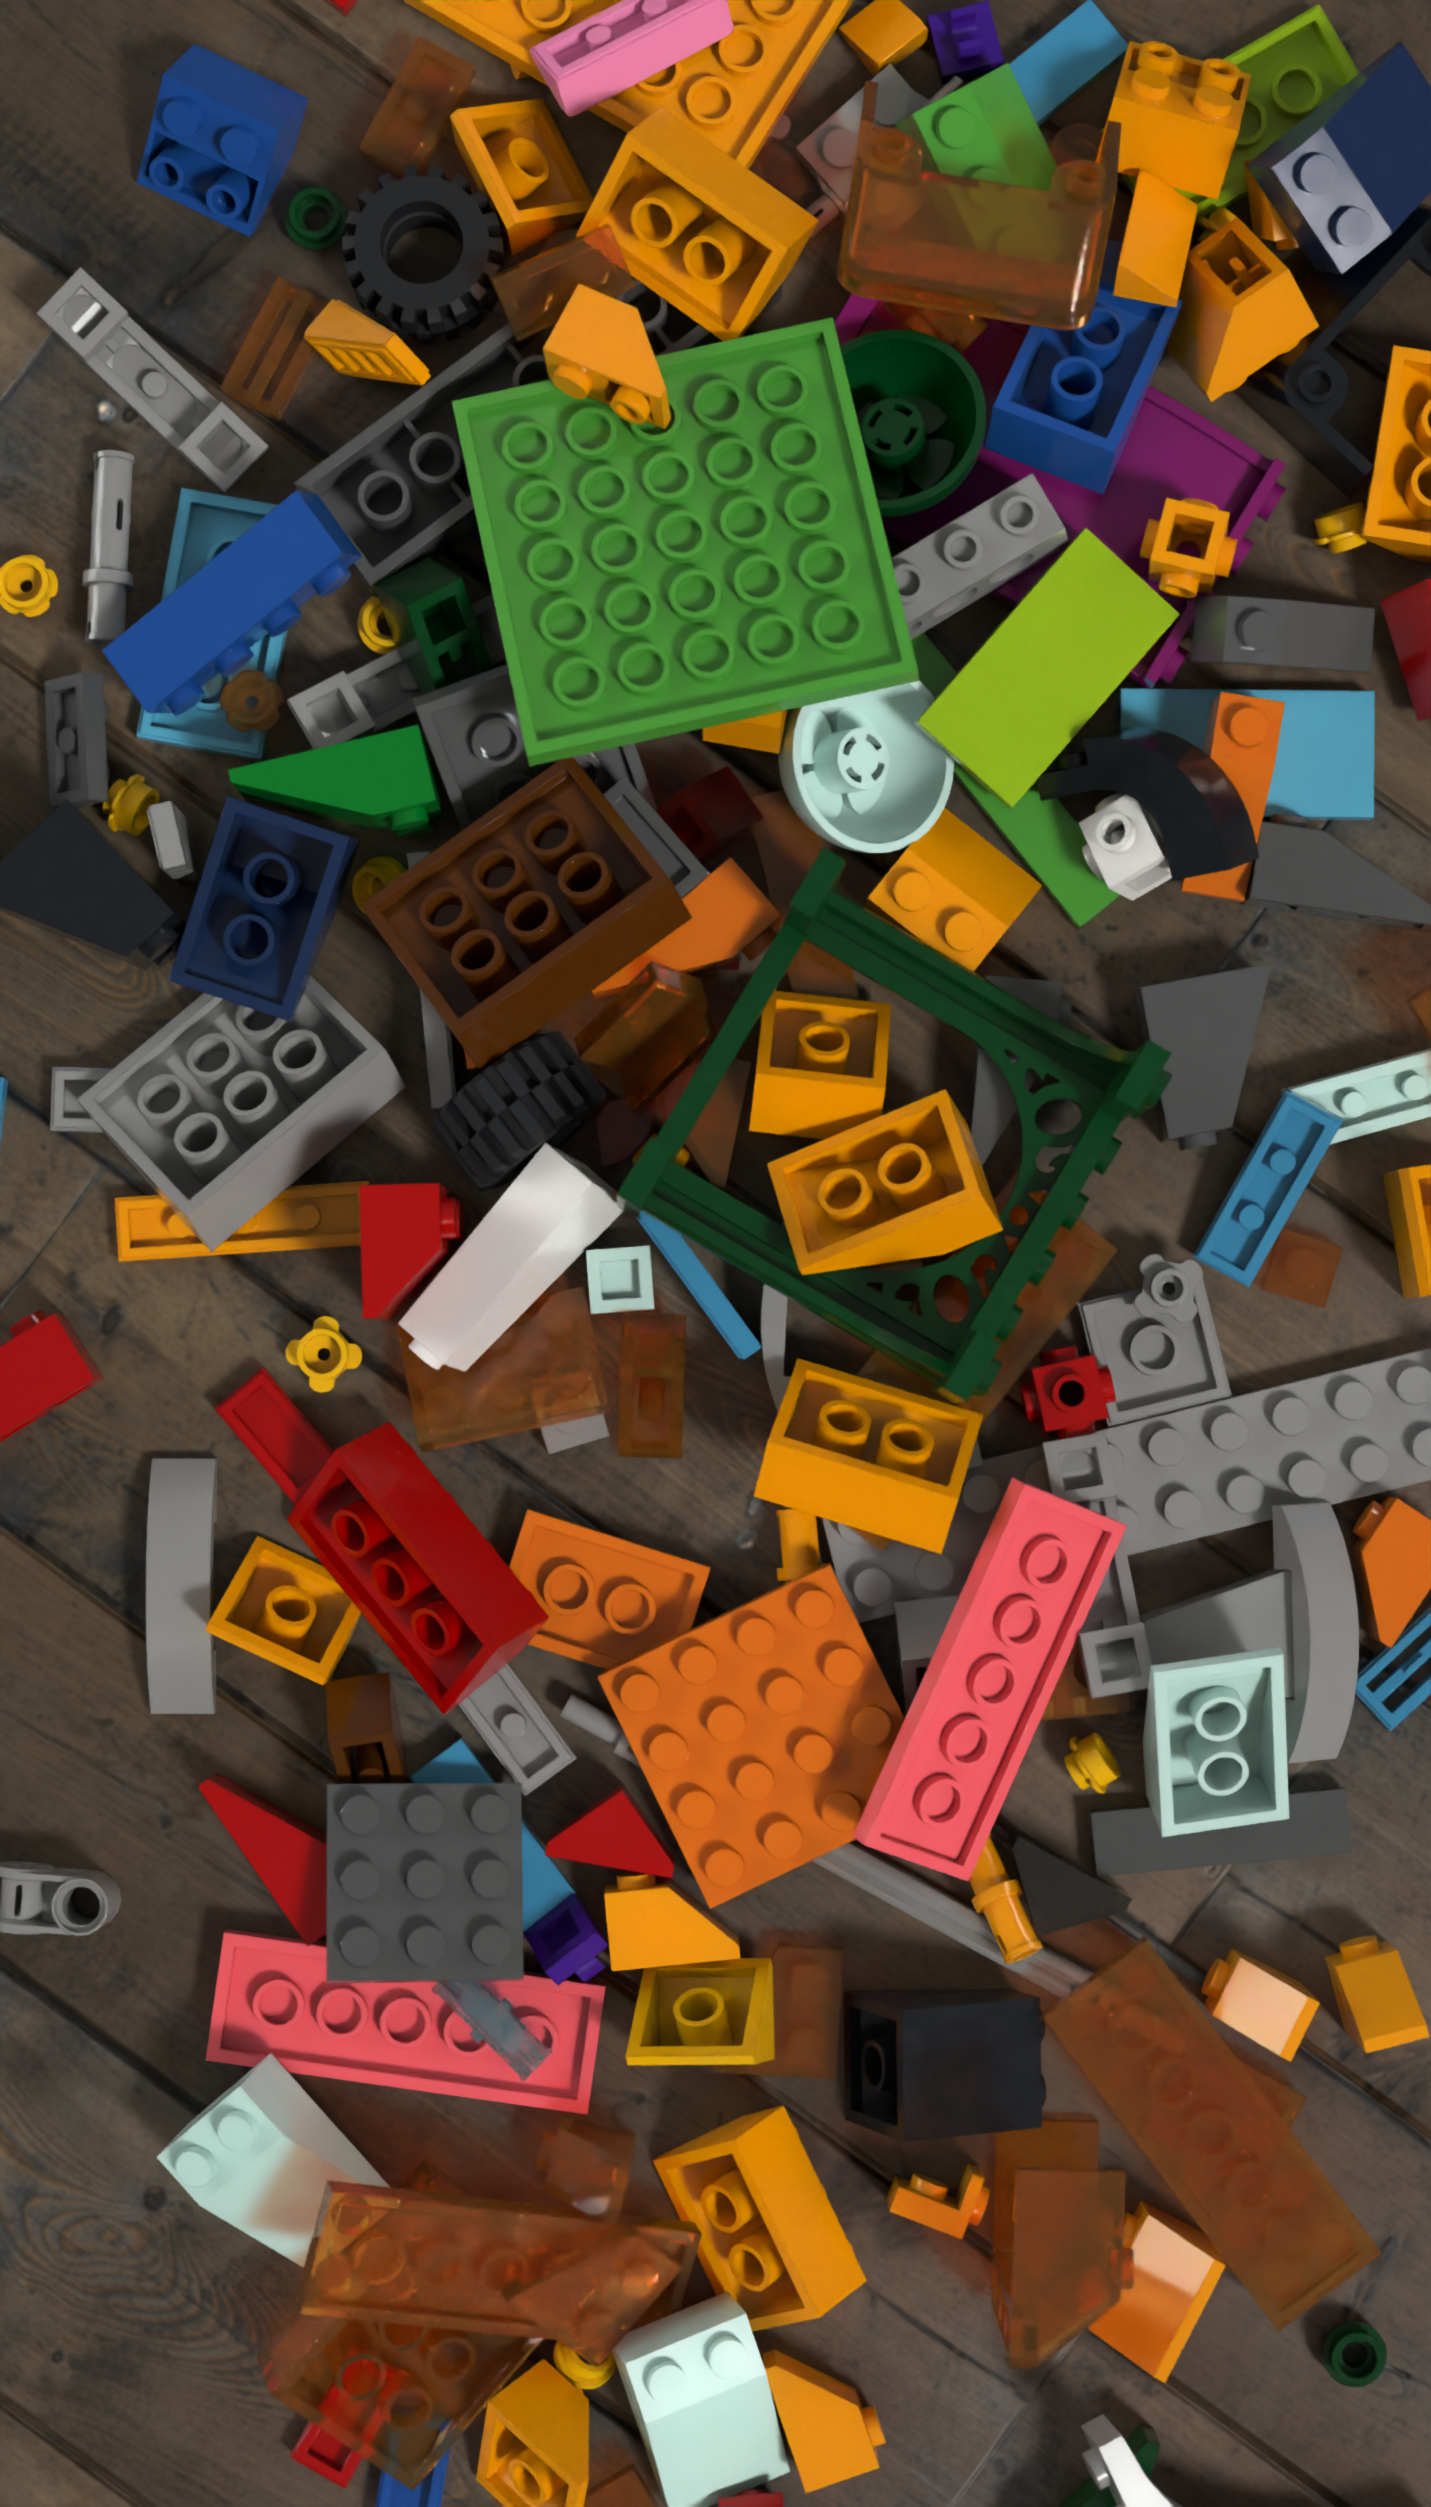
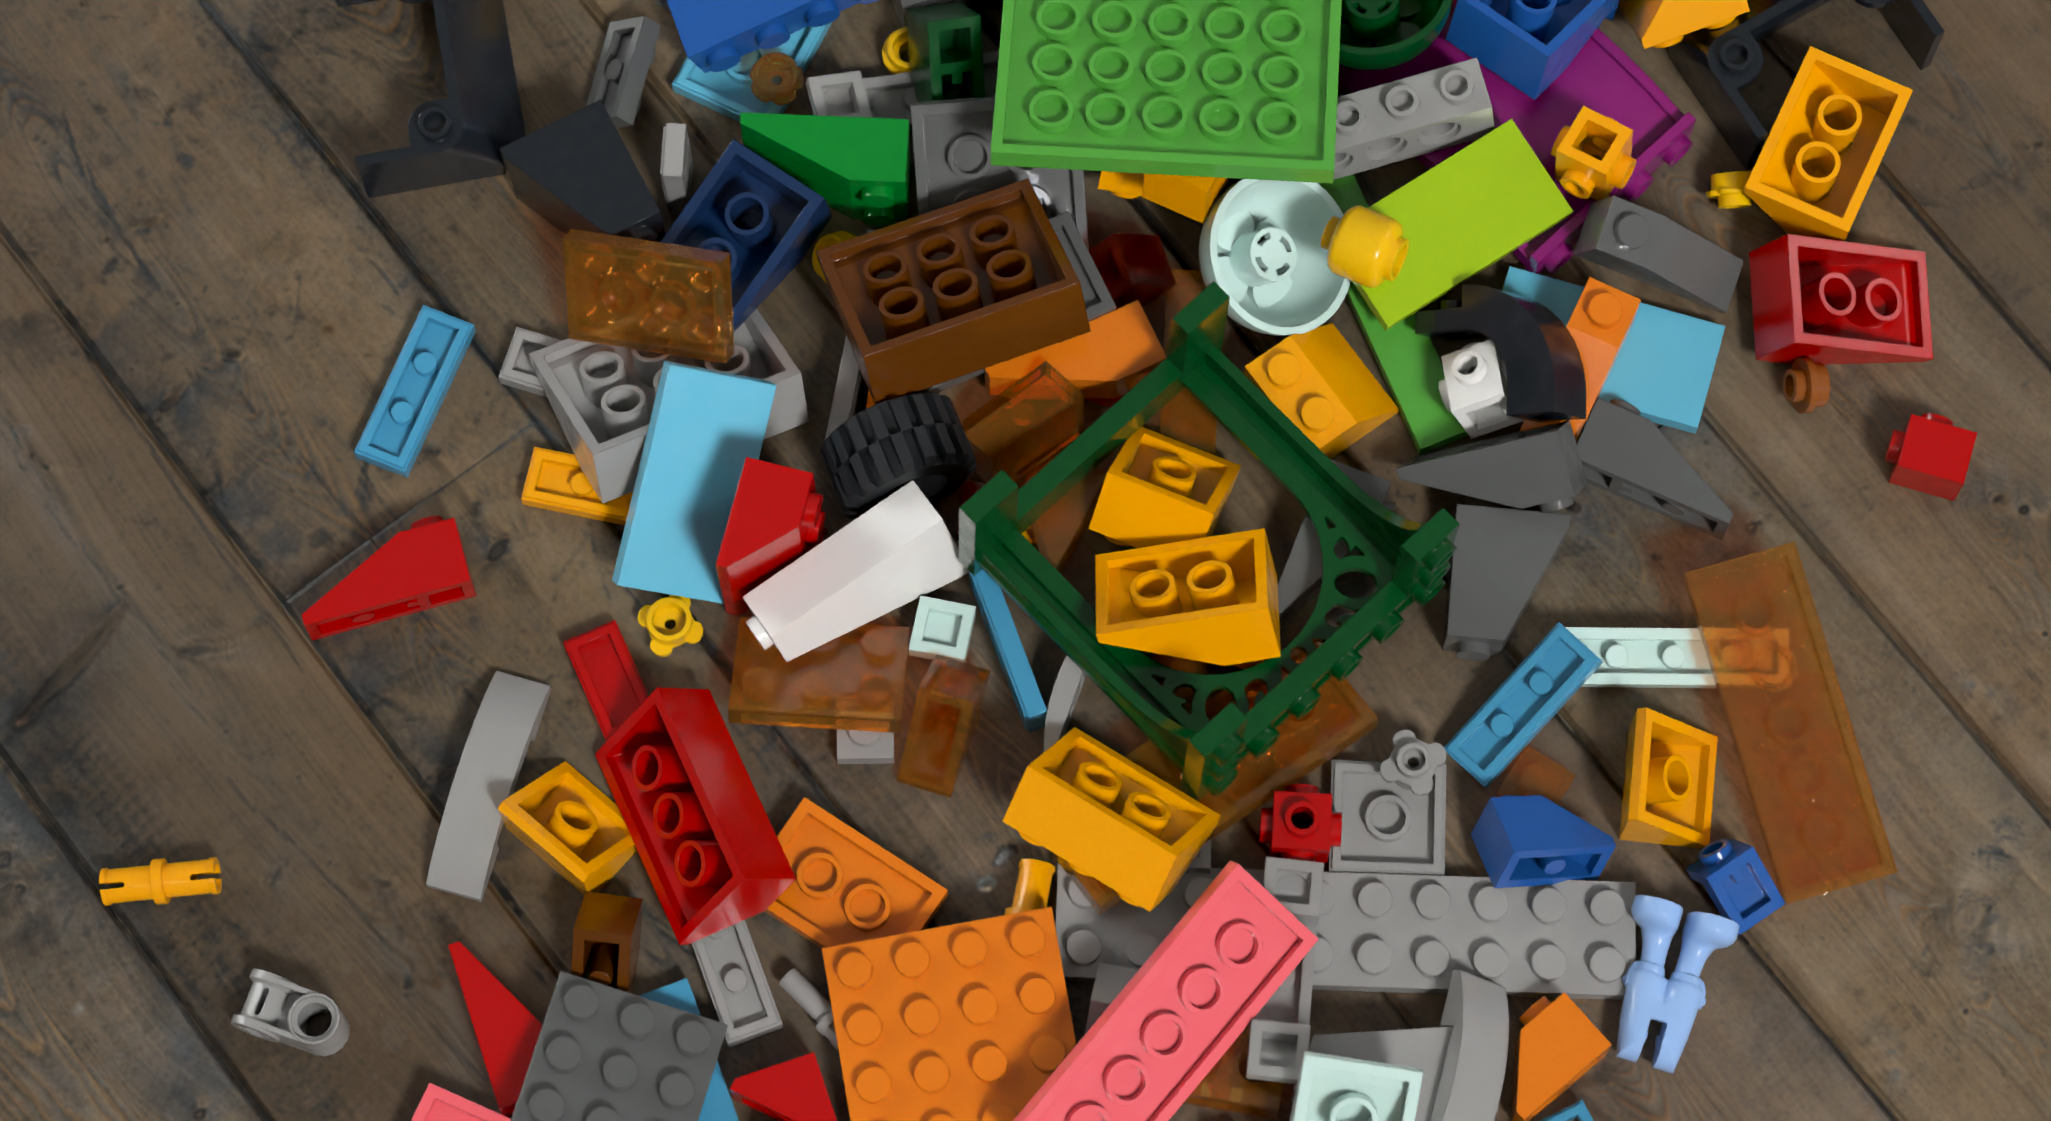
camera: 20 degrees right, 15 degrees down
(129, 805) = (646, 136): yellow plate -> none
(190, 1009) = (649, 295): none -> clear orange plate
(301, 1202) = (689, 478): none -> medium azure tile
(966, 730) = (1365, 246): none -> yellow head
(1184, 932) = (1511, 469): none -> dark grey slope
(1322, 1338) = (1538, 843): none -> blue slope

